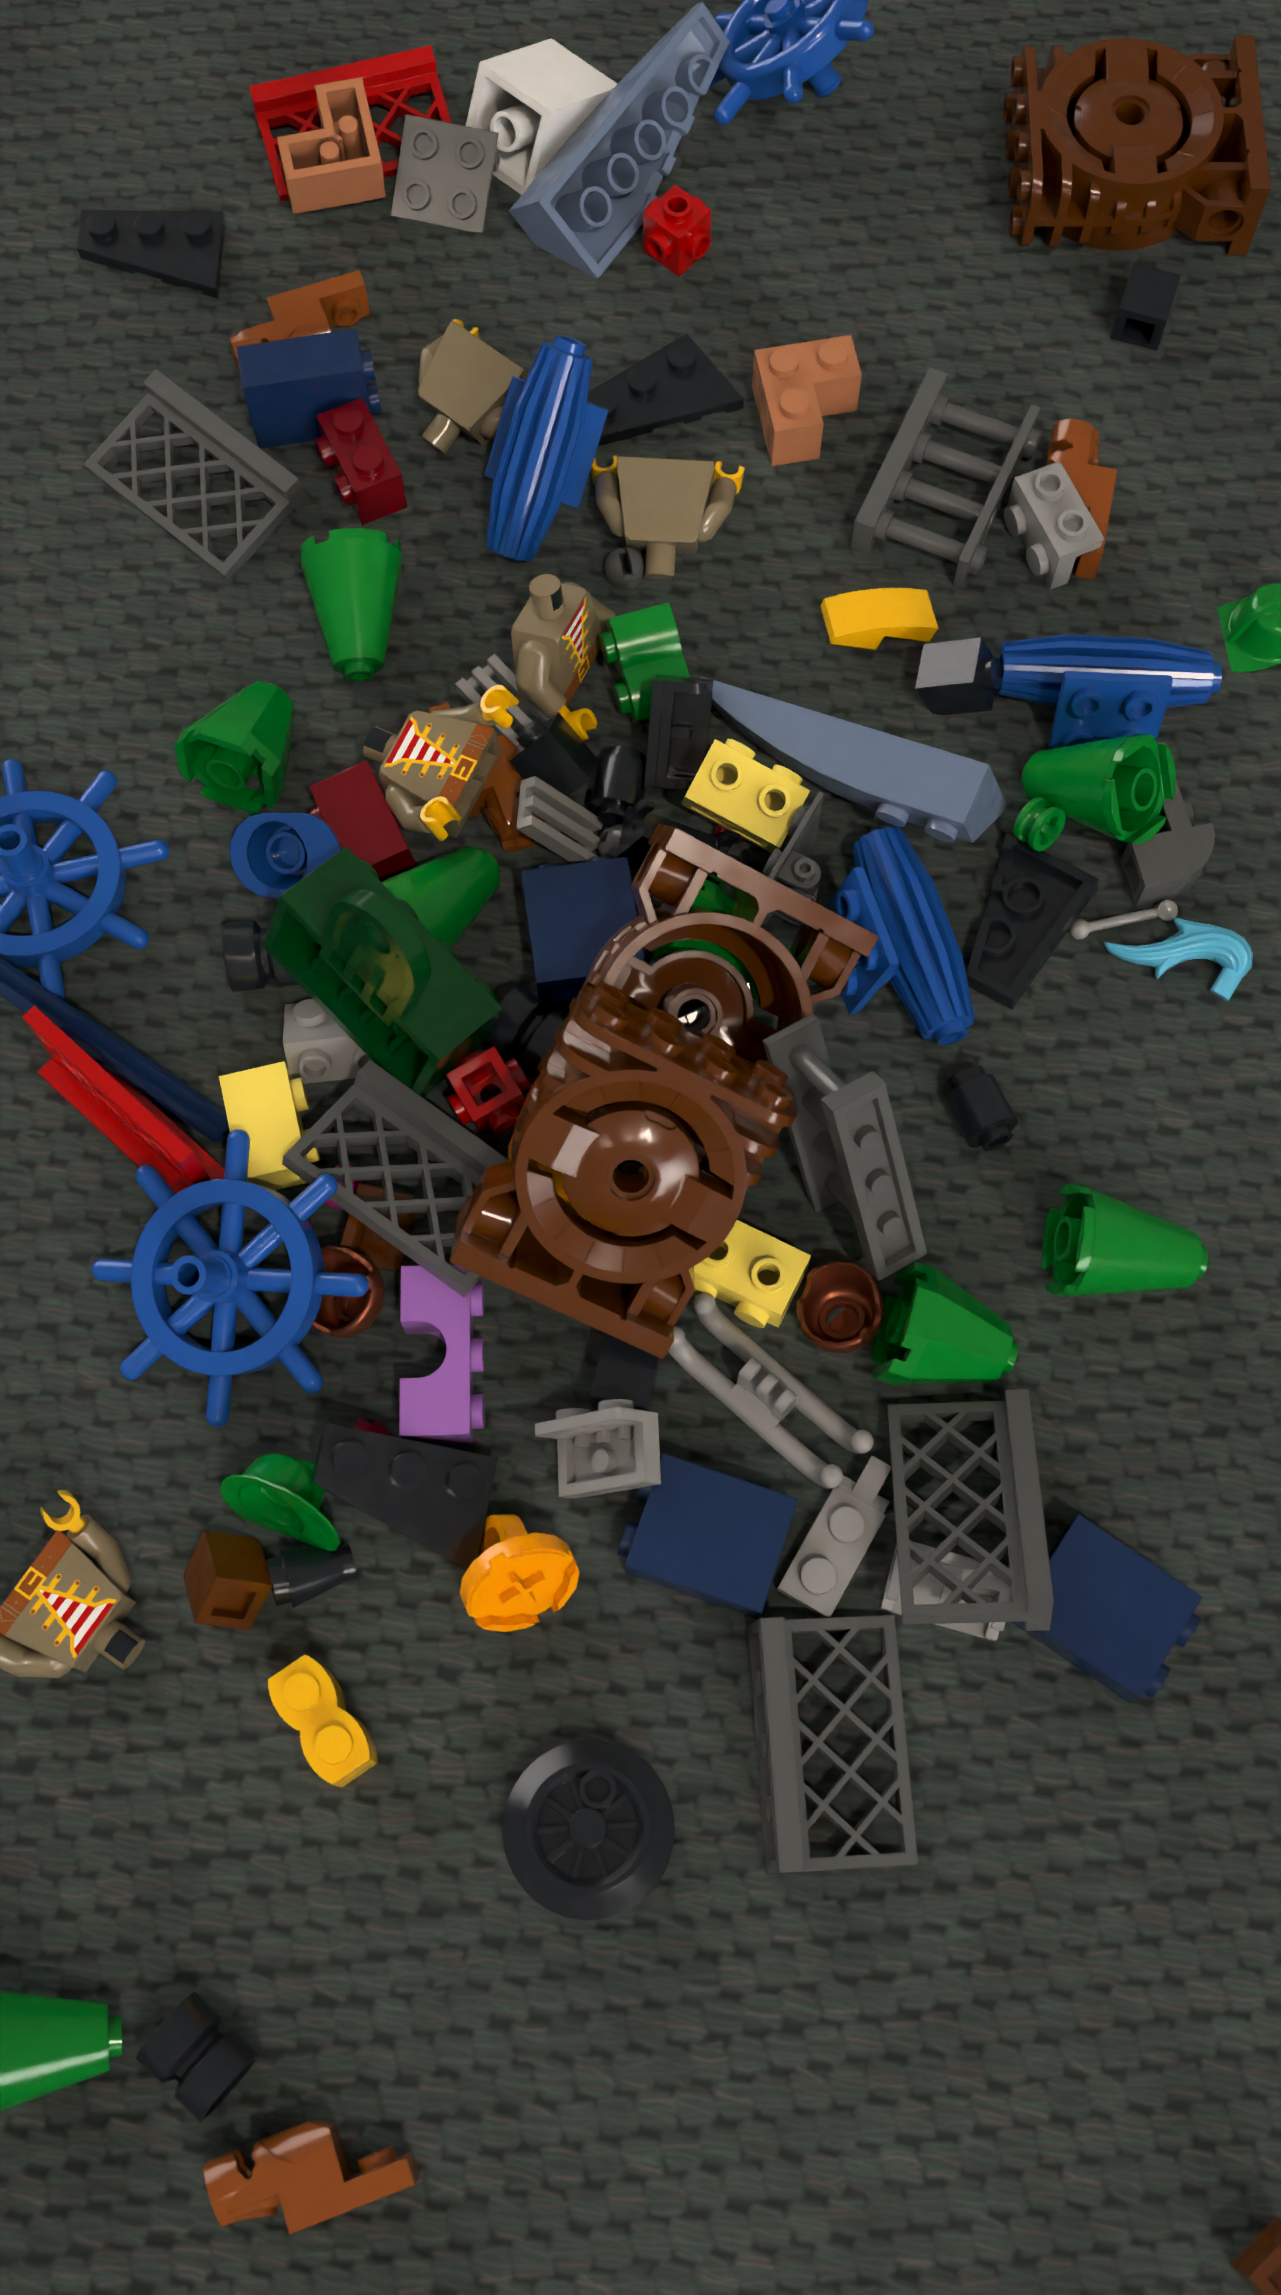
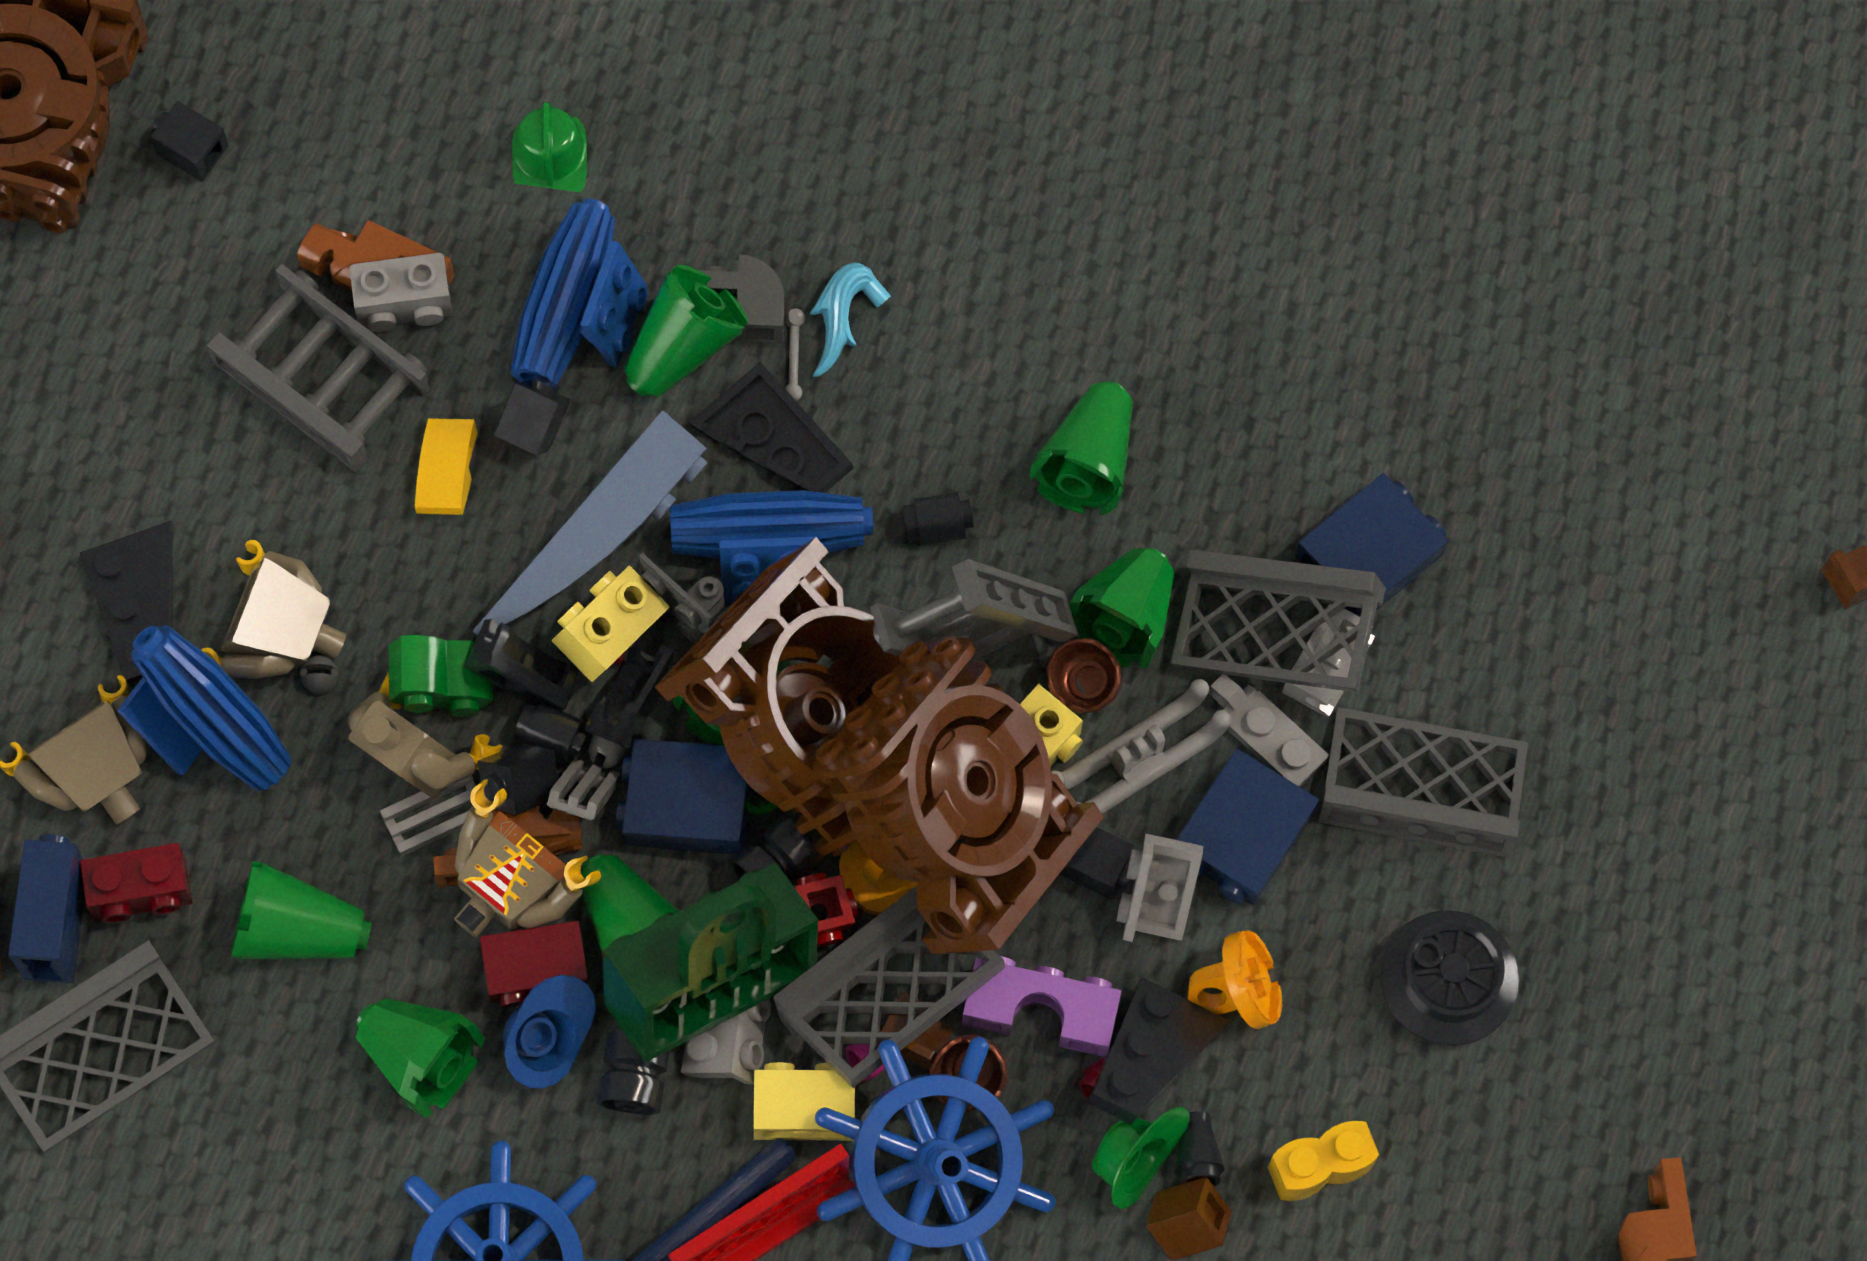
camera: 80 degrees left, 0 degrees up
(798, 387) = (185, 476): nougat brick -> none
(1039, 823) = (697, 392): green bush -> none

